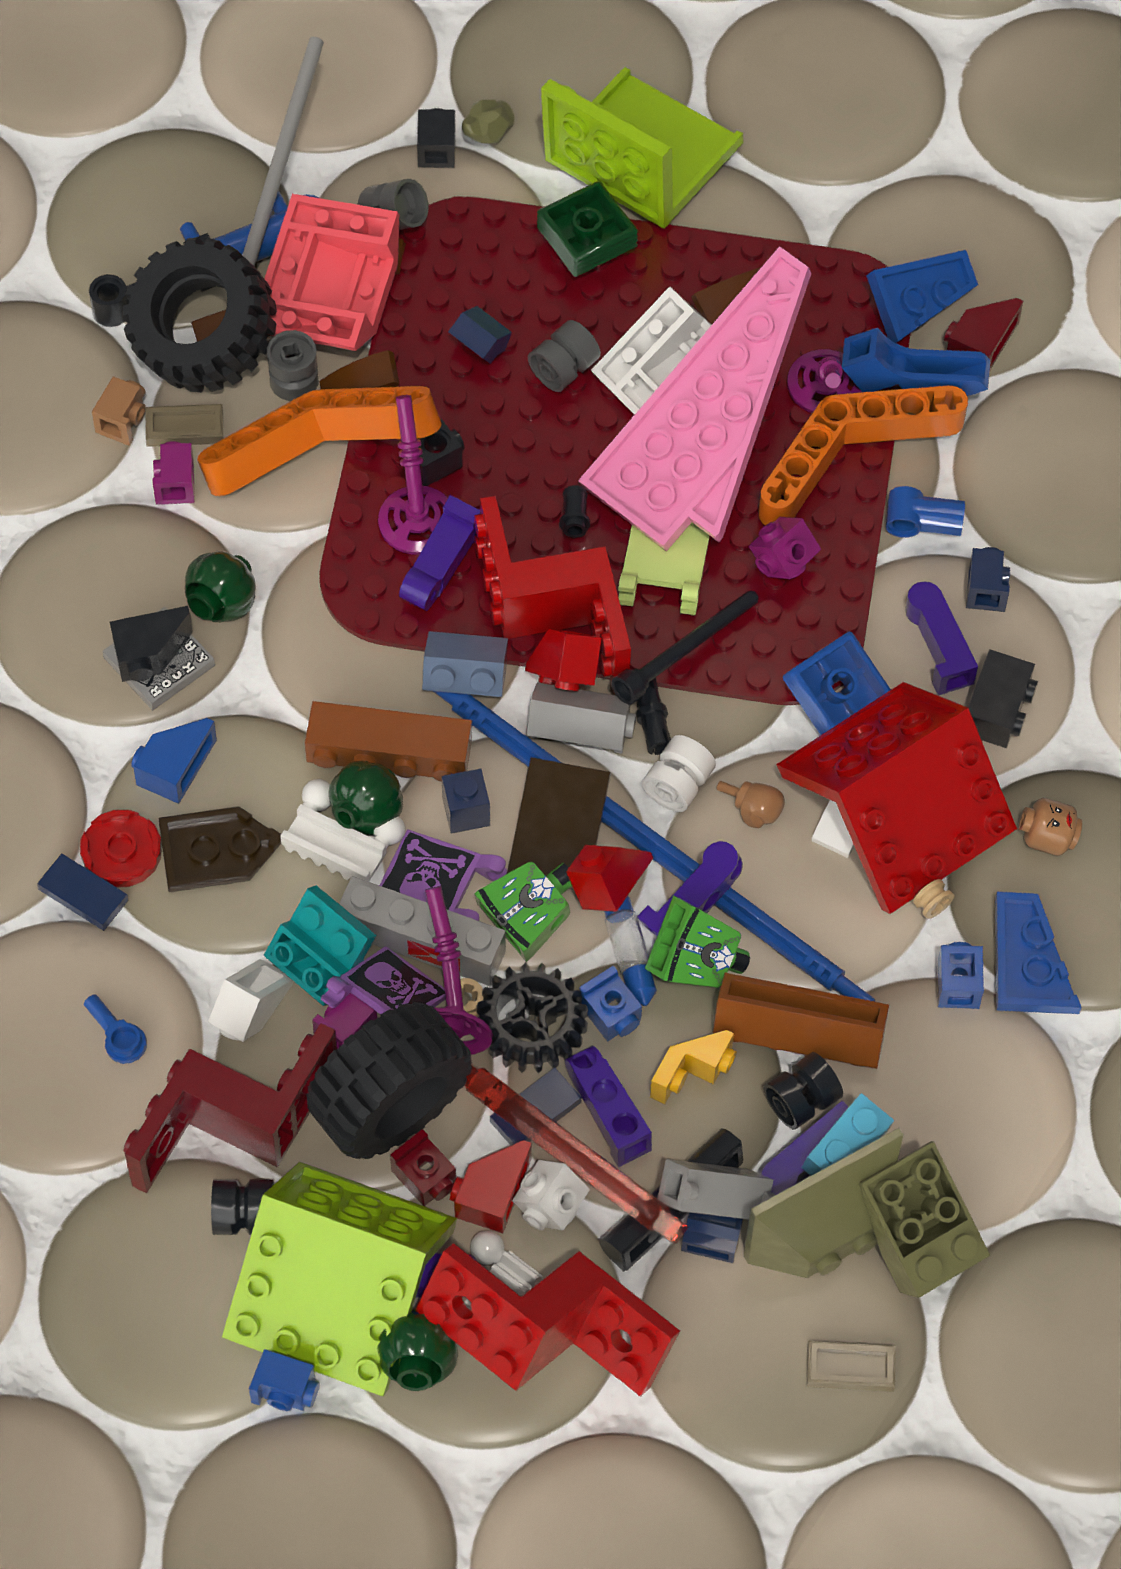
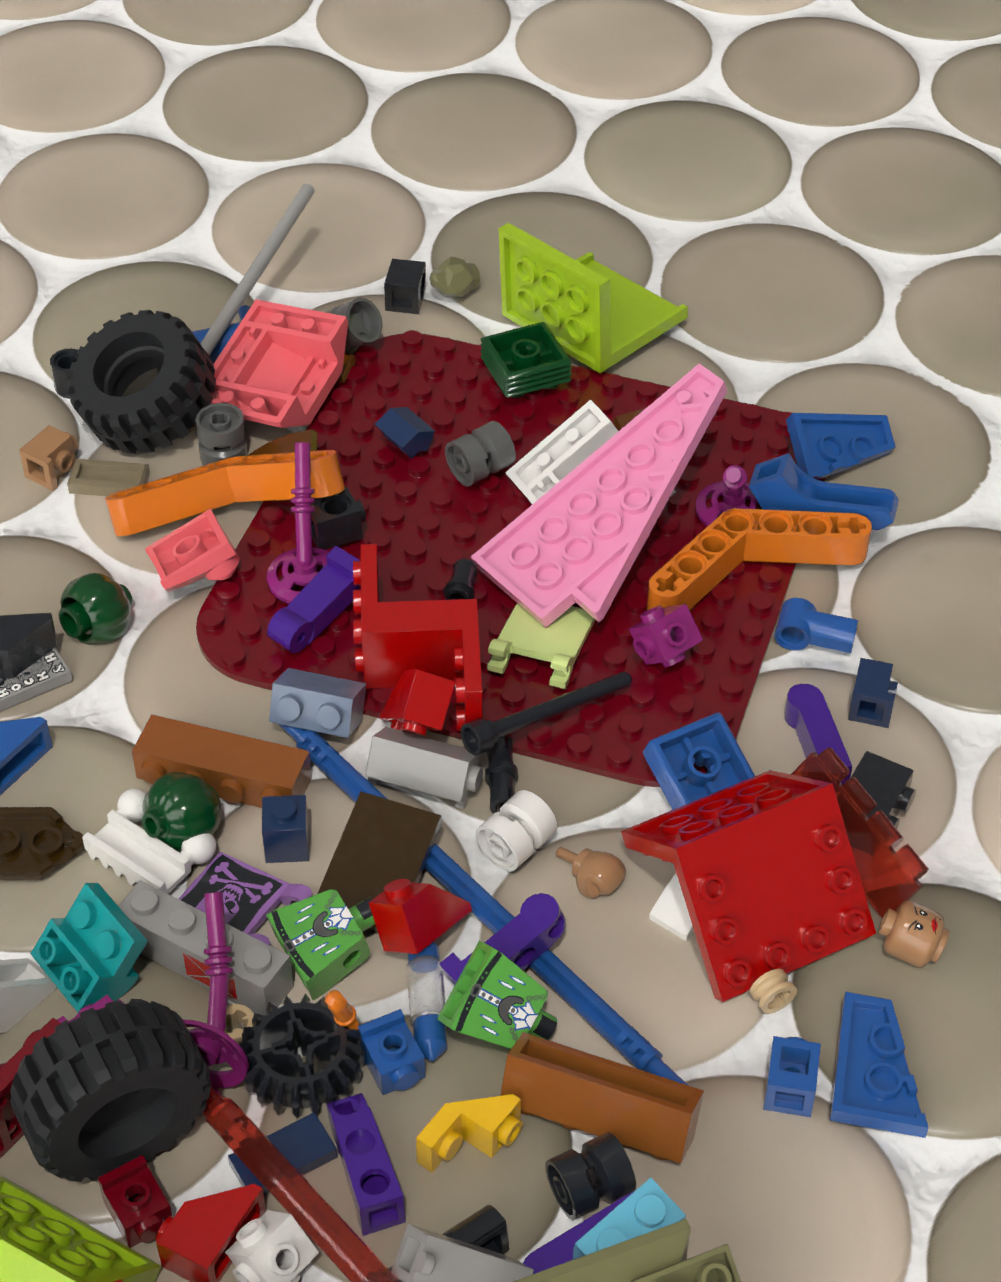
camera: 10 degrees right, 15 degrees down
(174, 474) = (83, 513): magenta brick -> none
(300, 510) = (193, 553): none -> coral slope
(384, 984) = (150, 984): flag -> none
(565, 976) = (343, 1013): none -> orange piece
(985, 328) = (906, 476): dark red slope -> none
(1019, 774) = (884, 873): none -> clear red windscreen

